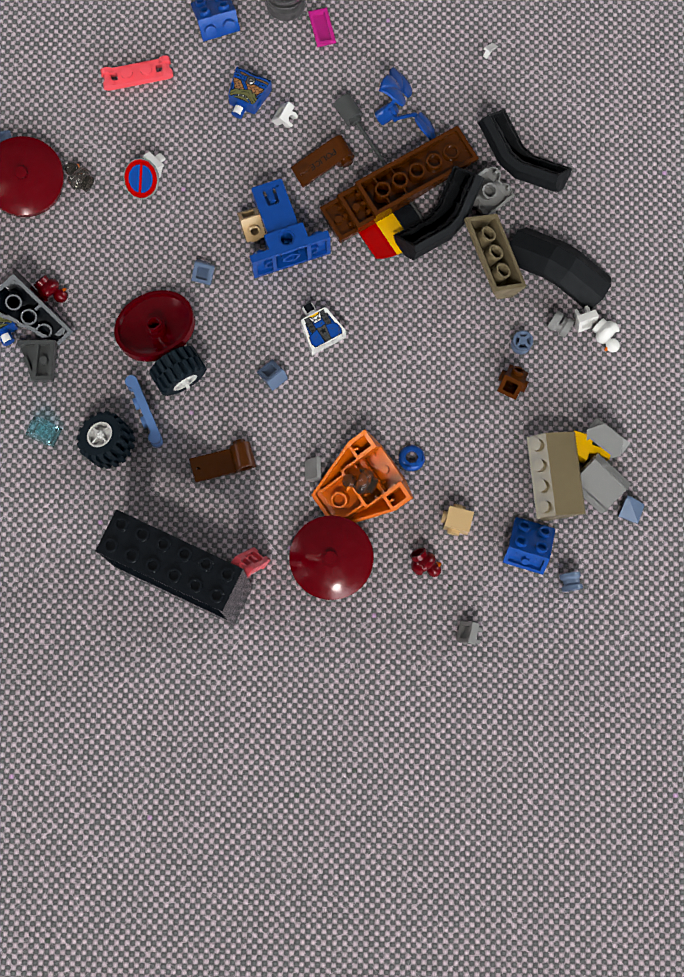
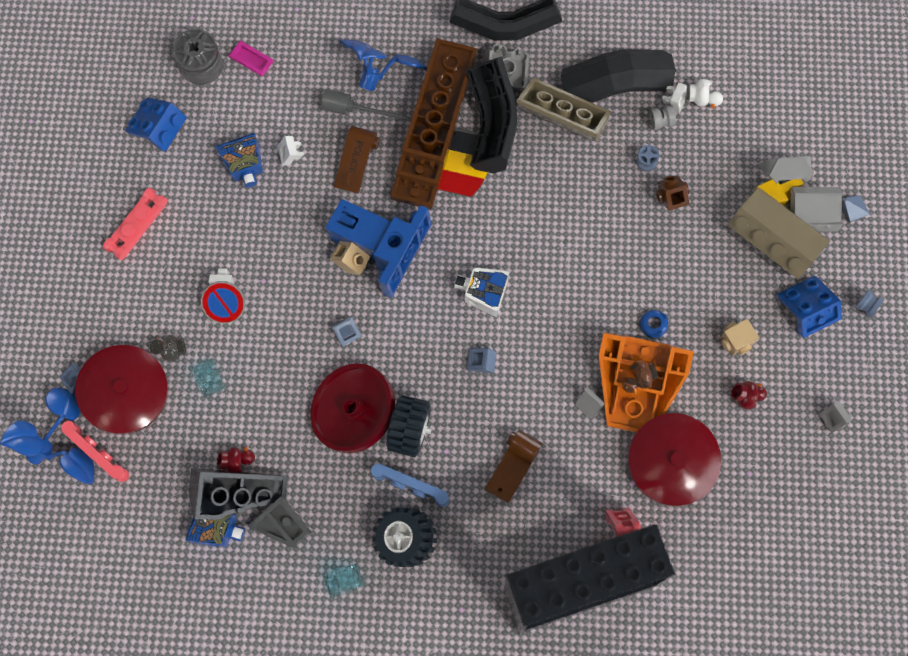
camera: 35 degrees left, 5 degrees down
(85, 220) = (208, 377): none -> clear light blue brick

